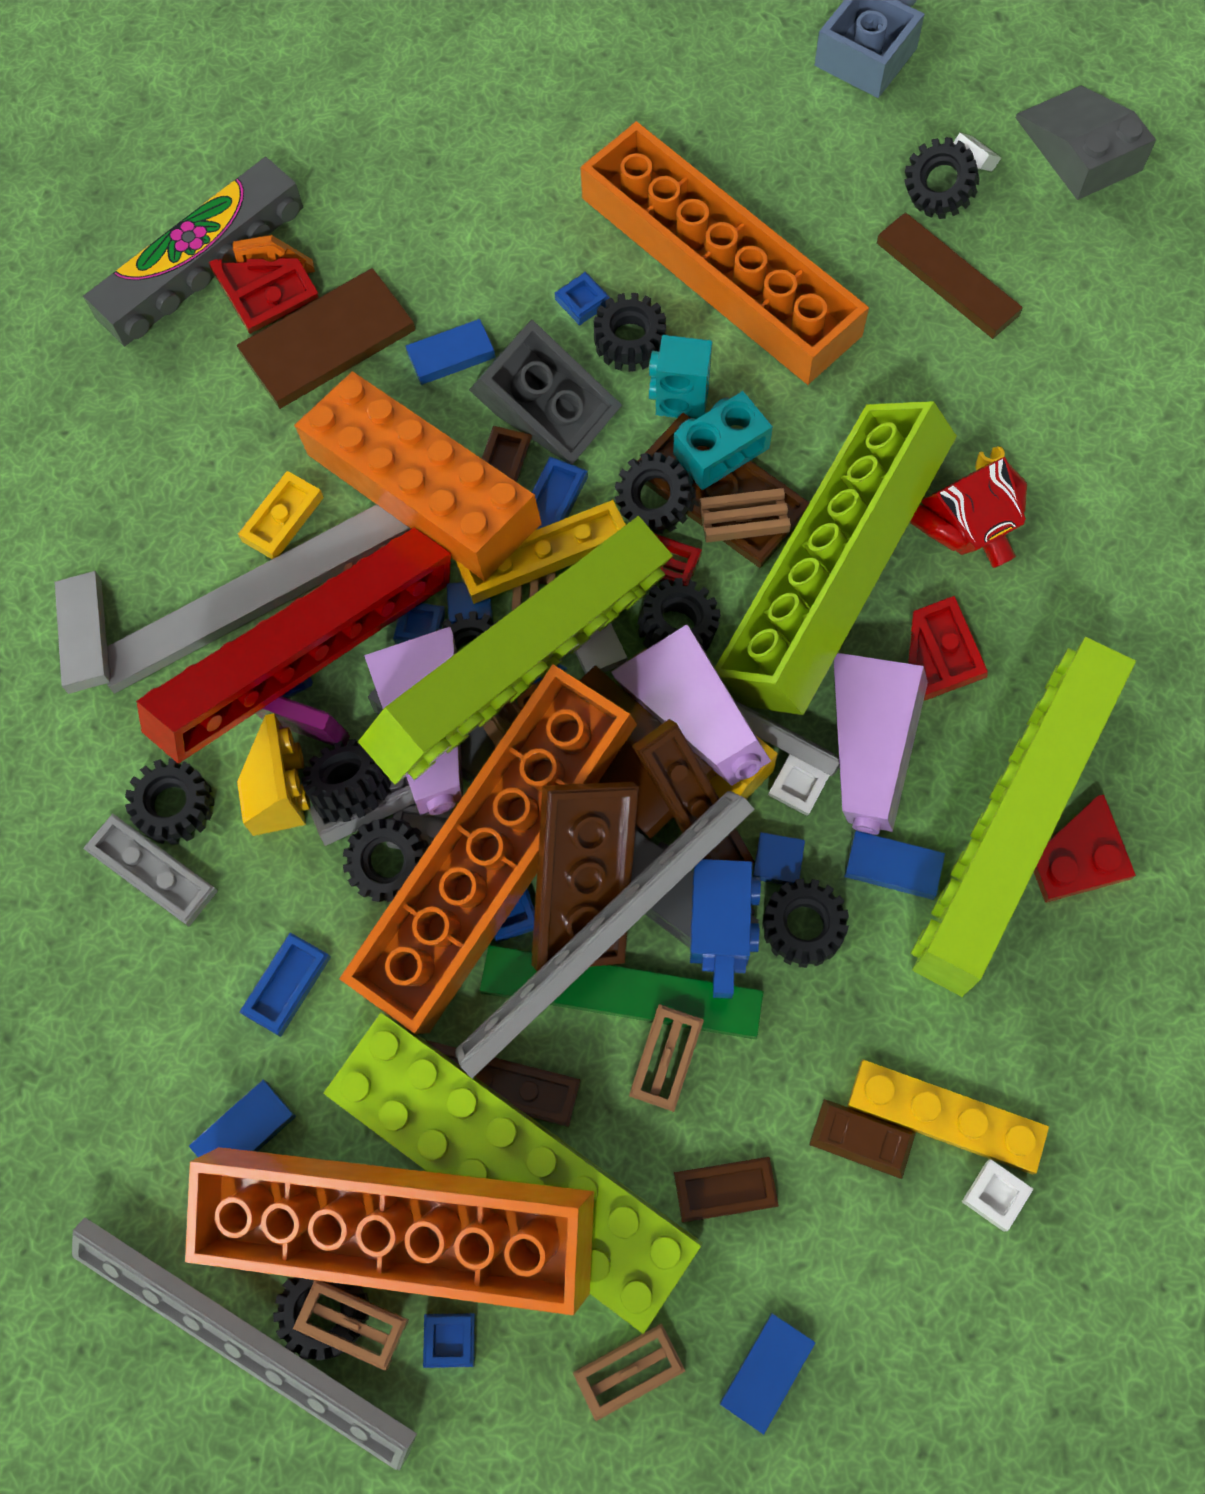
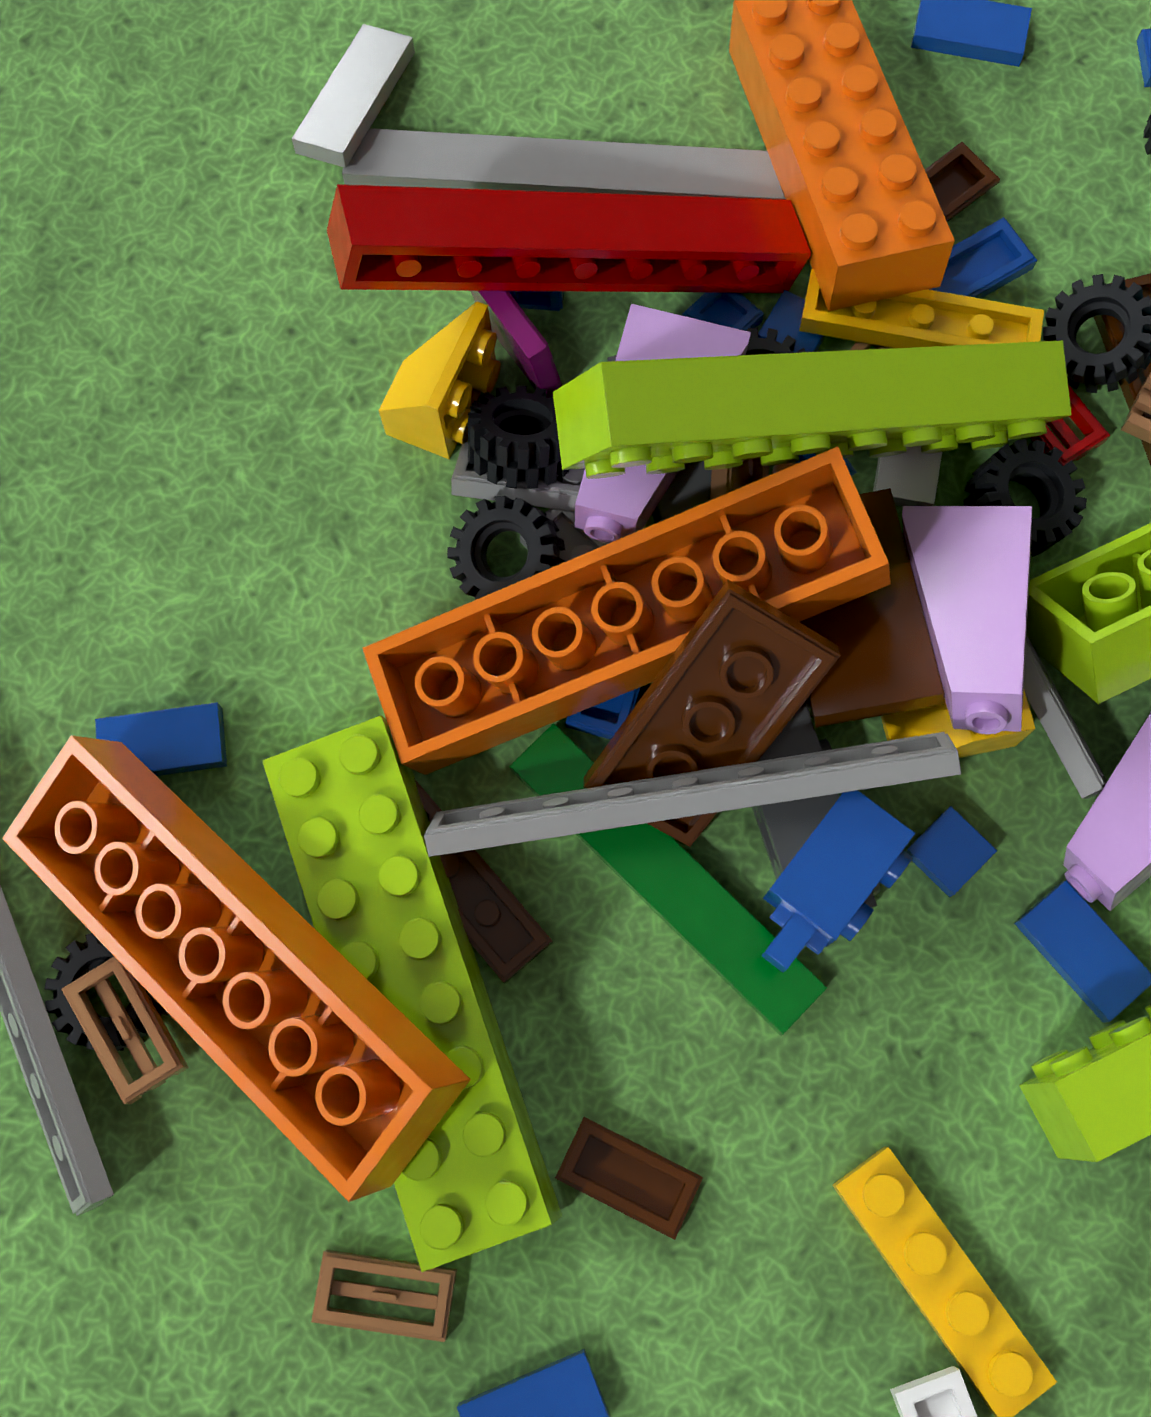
camera: 35 degrees right, 5 degrees up
(150, 869) = (255, 400): light grey tile -> none
(152, 784) = (316, 309): black tyre -> none
(281, 515) = (652, 98): yellow plate -> none
(285, 984) = (309, 617): blue tile -> none
(449, 1340) = (219, 1119): blue tile -> none
(546, 394) = (1050, 138): dark grey slope -> none
(653, 1096) = (708, 951): medium nougat tile -> none
(684, 785) = (897, 691): reddish brown tile -> none
(798, 785) = (1034, 782): white plate -> none
(813, 897) = (968, 938): black tyre -> none
(862, 1138) = (825, 1234): reddish brown tile -> none

